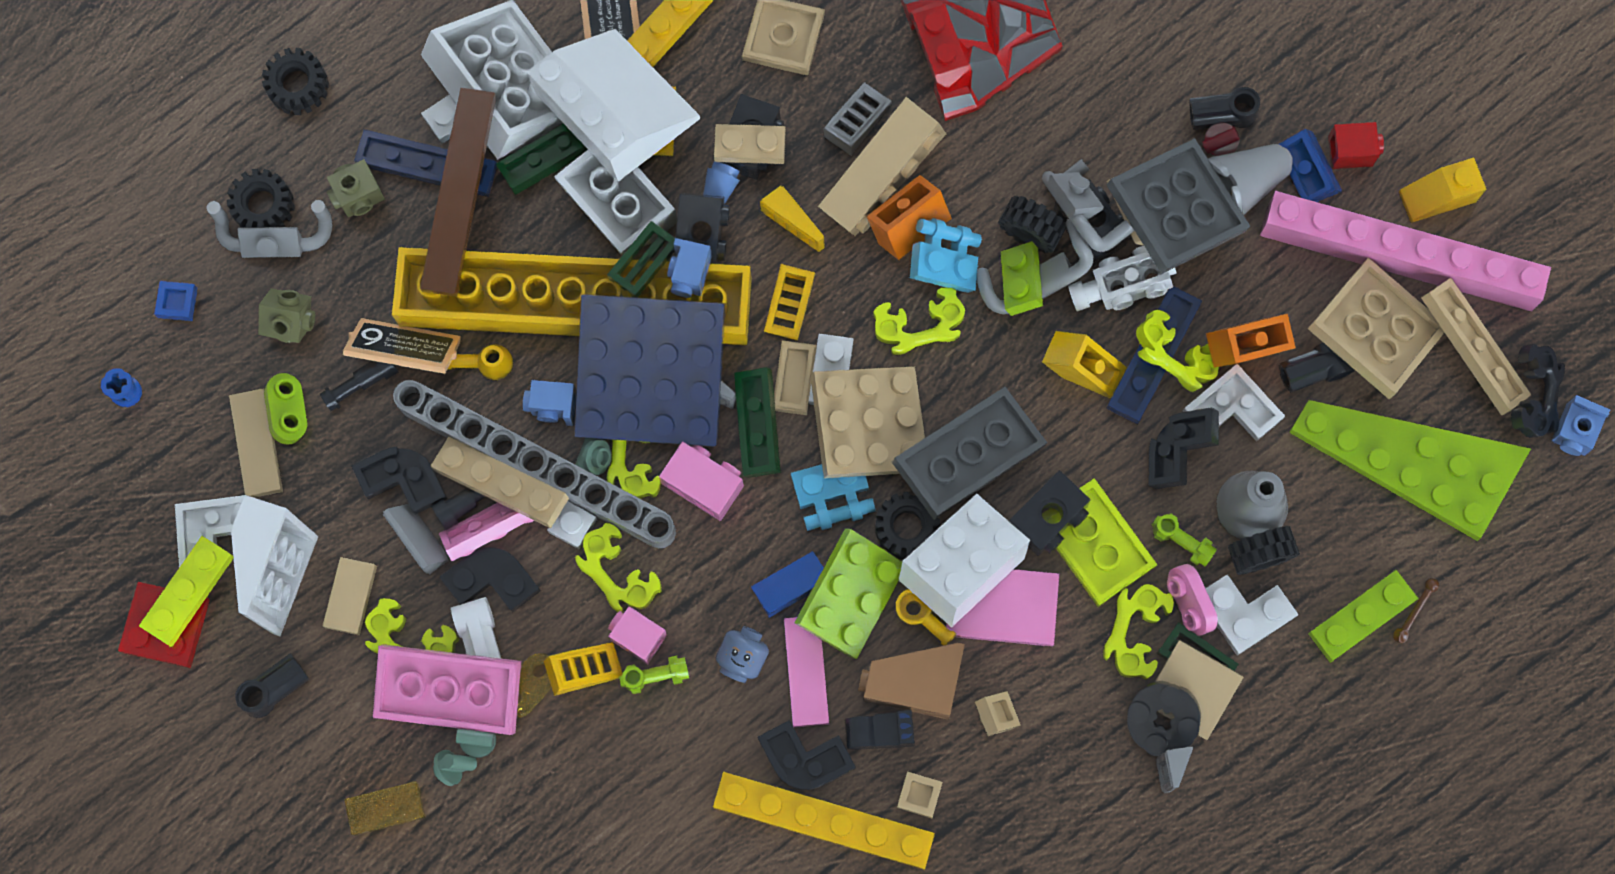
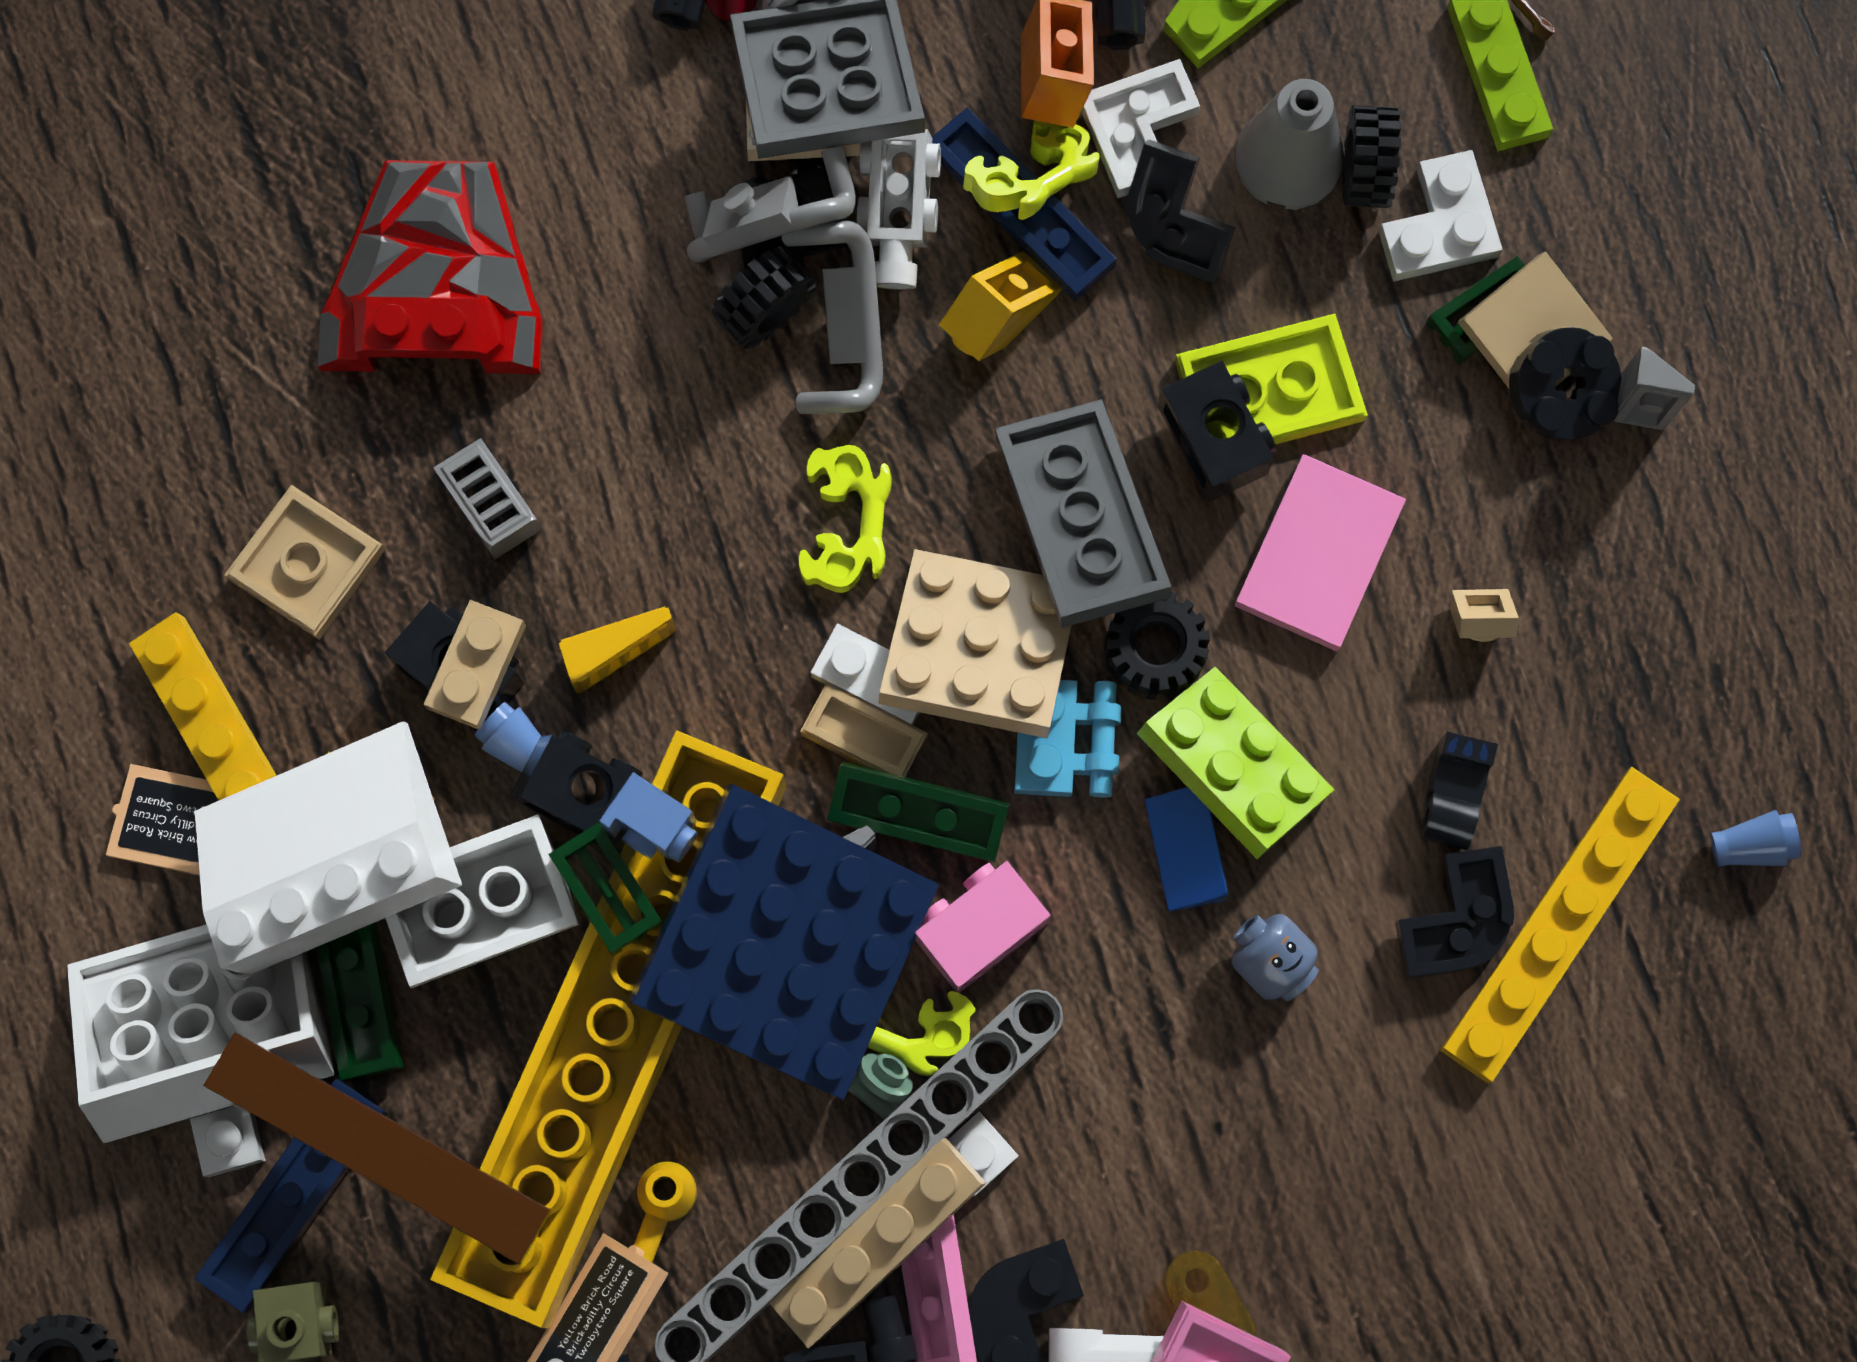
camera: 75 degrees left, 0 degrees up
(551, 401) = (770, 1120): medium blue brick -> none
(556, 673) = (1217, 1252): yellow slope -> none
(598, 545) = (1120, 1087): neon yellow helmet -> none
(635, 678) = (1258, 1132): lime bar -> none
(636, 634) = (1189, 1108): bright pink brick -> none
(795, 273) = (735, 669): yellow slope -> none
(806, 676) = (1333, 875): bright pink tile -> none
(883, 166) = (588, 481): tan wedge -> none
(897, 217) = (682, 471): orange brick -> none
(915, 680) = (1397, 712): medium nougat slope -> none
(919, 795) = (1568, 768): tan plate -> none
(924, 617) = (1303, 667): yellow bar -> none
(941, 265) = (776, 451): medium azure plate -> none
(963, 560) = (1248, 575): white brick -> none
(1021, 278) = (839, 344): lime plate -> none
(1131, 661) = (1462, 400): neon yellow helmet -> none
(1167, 528) = (1288, 274): lime bar -> none
(1192, 599) = (1405, 282): bright pink plate -> none

